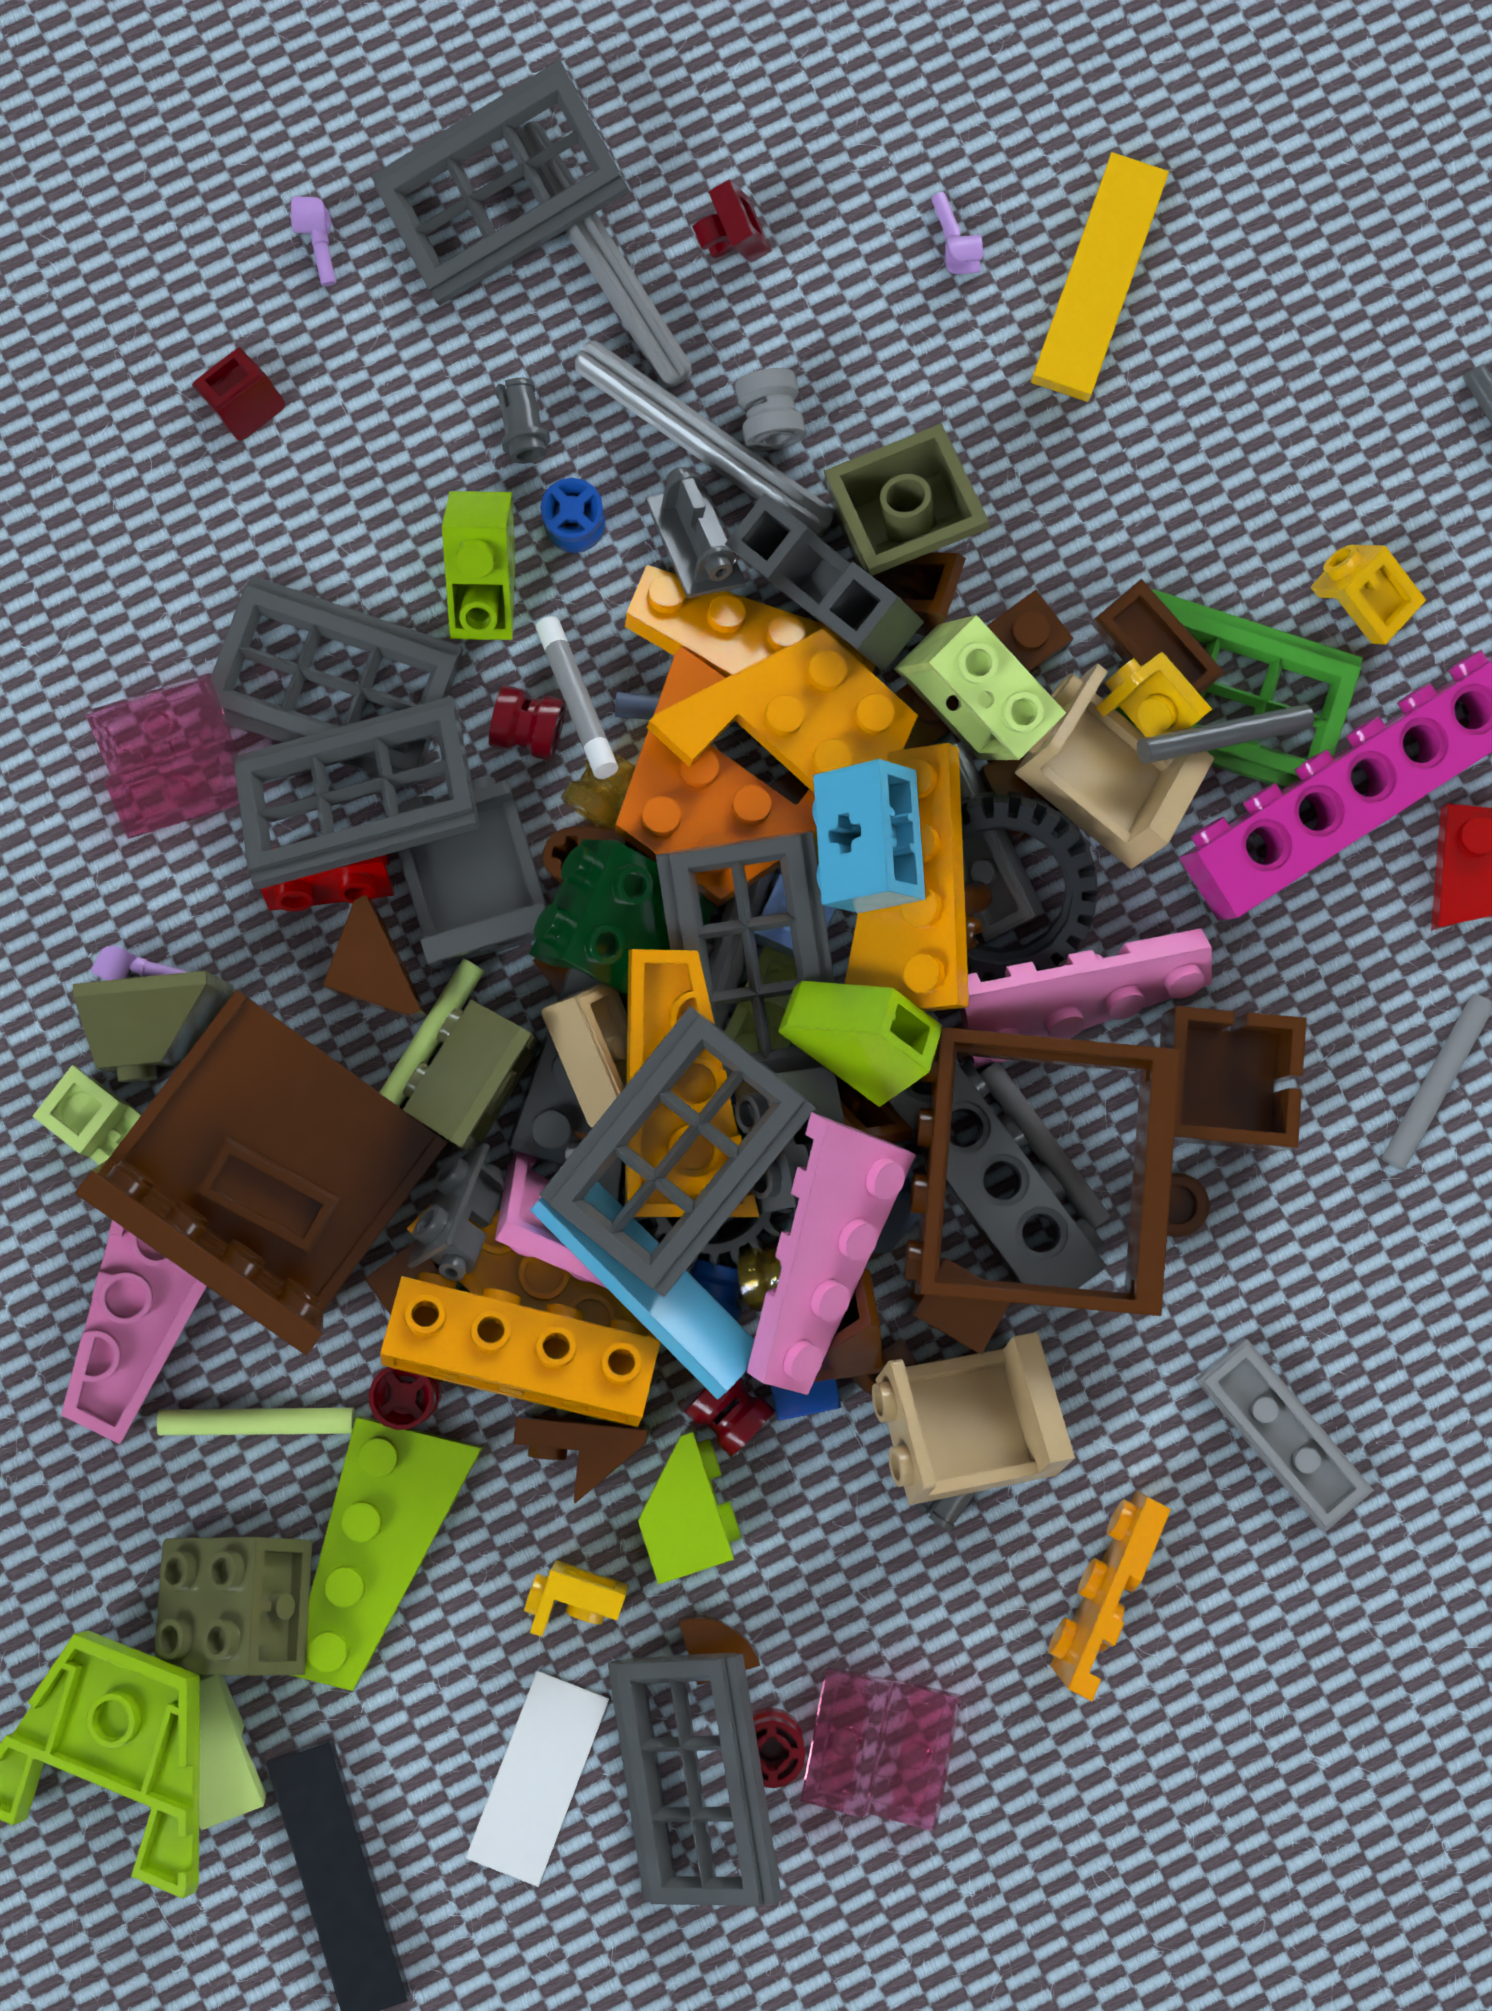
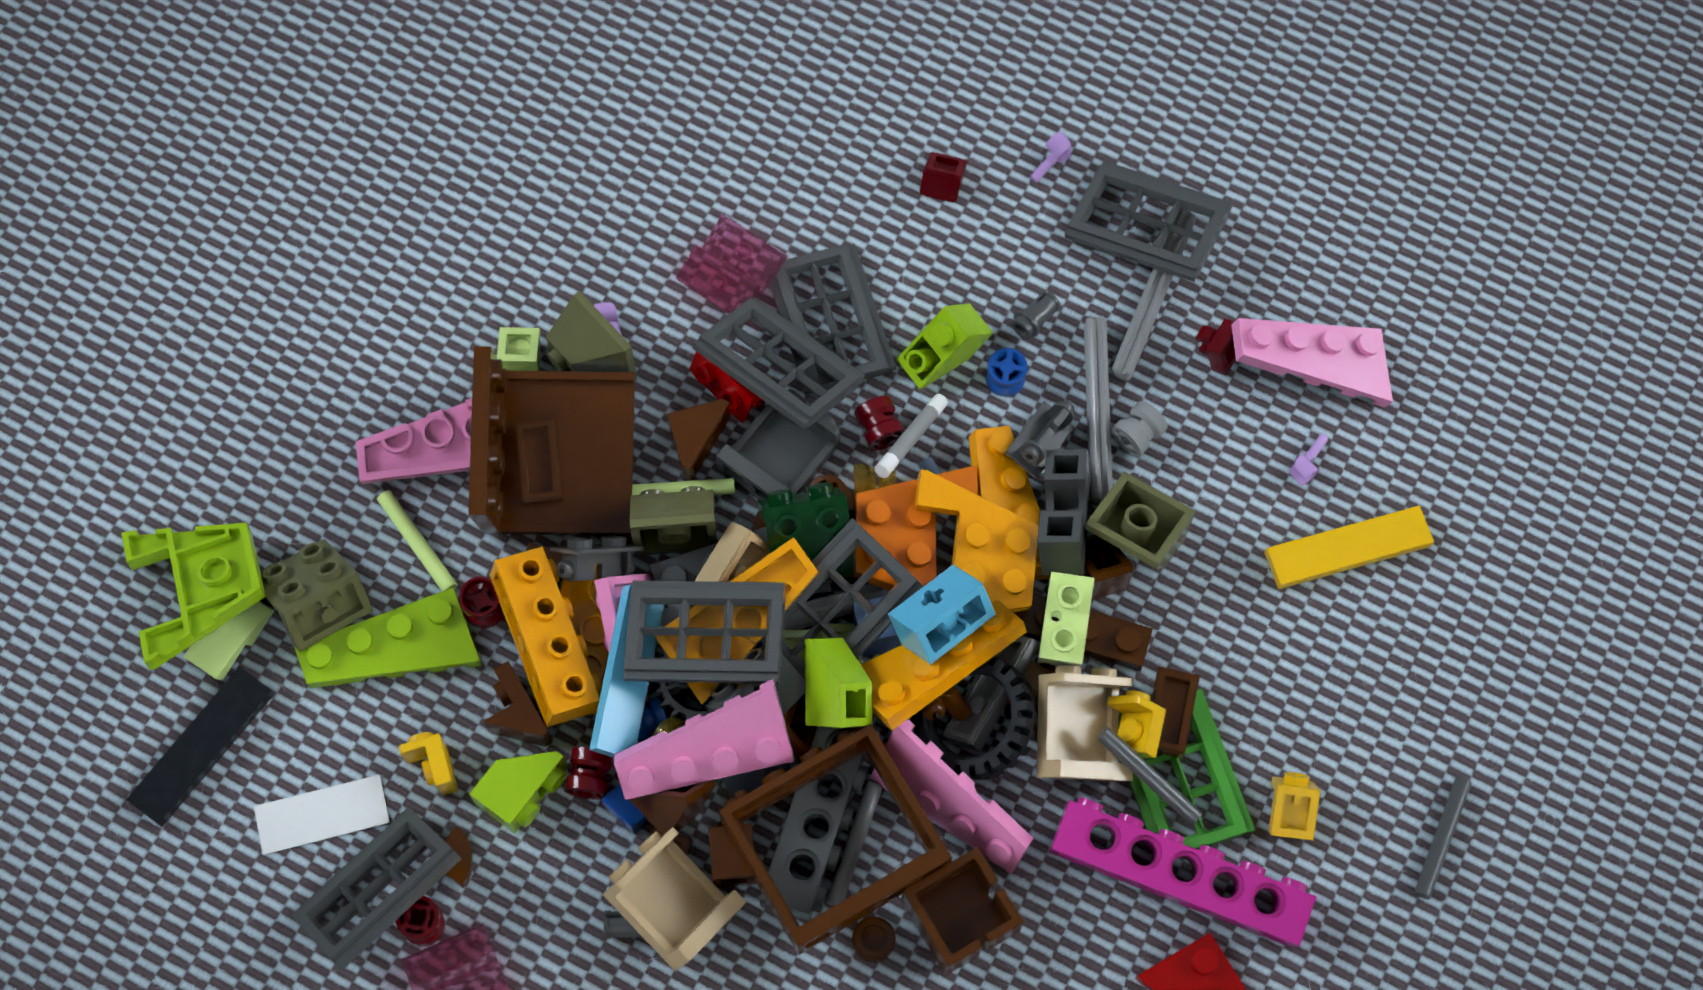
camera: 55 degrees right, 15 degrees down
(837, 116) = (1319, 353): none -> bright pink wing

